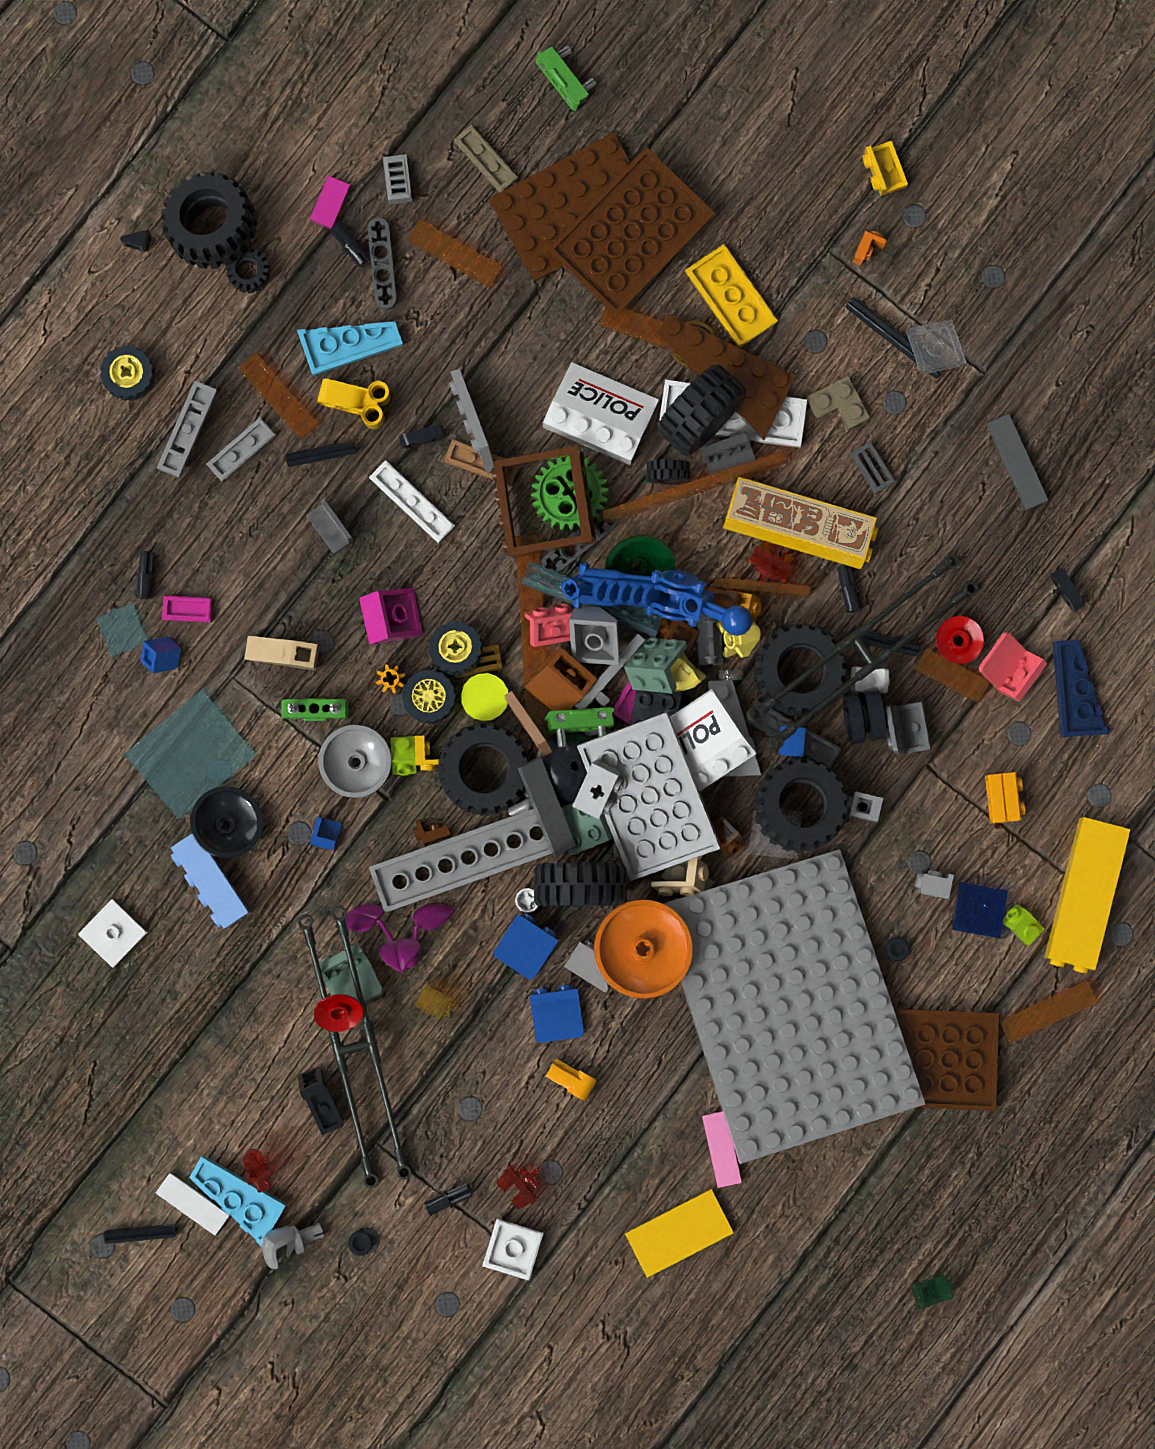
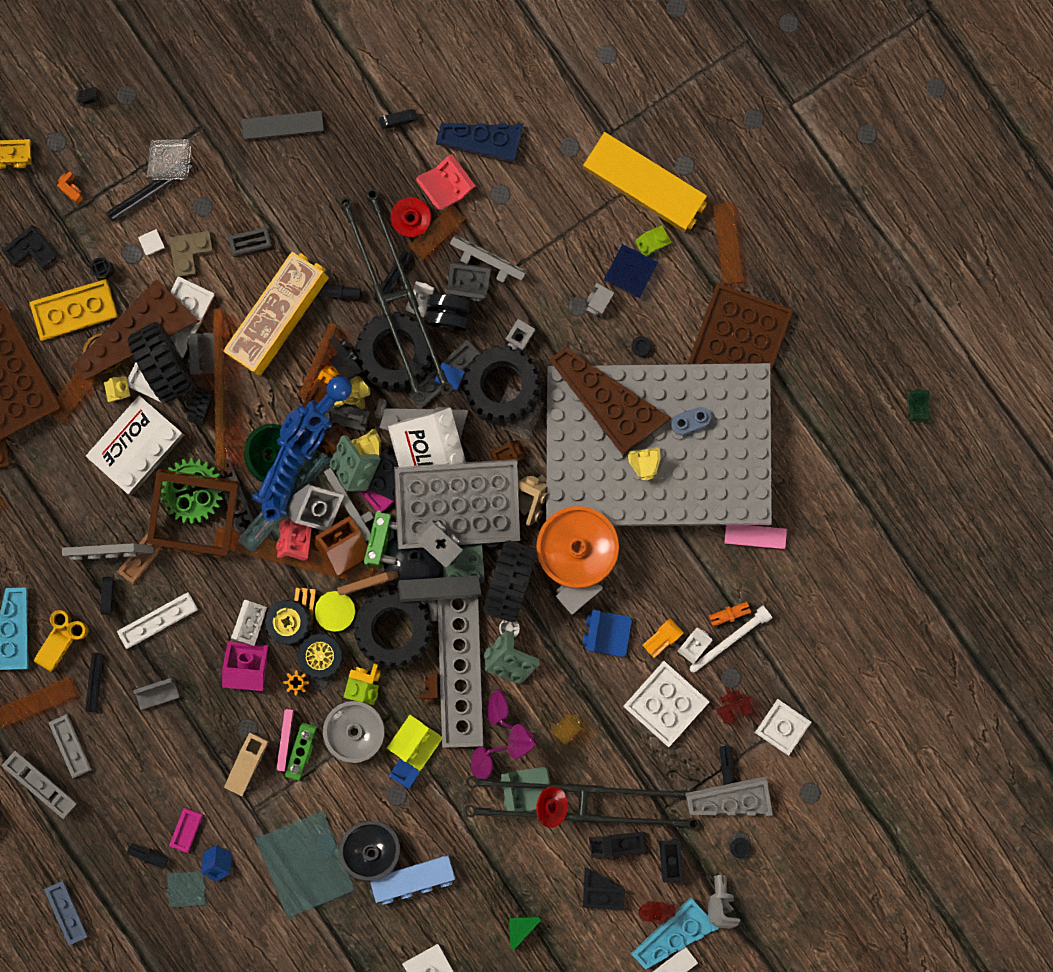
camera: 65 degrees left, 0 degrees up
(54, 505) = (66, 913): none -> sand blue plate
(193, 1021) = (520, 928): none -> green slope
(261, 1100) = (601, 892): none -> black wing
(321, 1168) = (671, 860): none -> black brick
(322, 687) = (285, 740): none -> bright pink tile
(364, 834) = (414, 742): none -> neon yellow bracket
(416, 1224) = (743, 797): none -> light grey wing
(441, 604) = (249, 622): none -> white bracket
(487, 911) = (507, 662): none -> sand green bracket
(497, 1106) = (666, 704): none -> white plate
(525, 946) = (545, 640): blue bracket -> none
(574, 1118) = (695, 645): none -> white bracket
(623, 1147) = (729, 614): none -> orange pin
(632, 1184) = (761, 616): none -> white piece
(657, 372) = (116, 388): none -> light yellow bracket
(679, 1233) = (811, 591): yellow tile -> none
(765, 995) = (645, 462): none -> light yellow brick
(770, 565) = (301, 349): clear red hips -> none
(772, 617) = (344, 360): none -> black bracket
(786, 316) = (104, 267): none -> black wheel
(791, 225) = (30, 243): none -> black tile
(816, 941) = (614, 407): none -> reddish brown wing
(827, 1035) = (691, 421): none -> sand blue plate
(835, 358) = (151, 242): none -> white tile
(938, 764) = (471, 249): none -> light grey hinge
(977, 233) = (87, 96): none -> black slope
(1004, 798) = (547, 222): light orange brick -> none

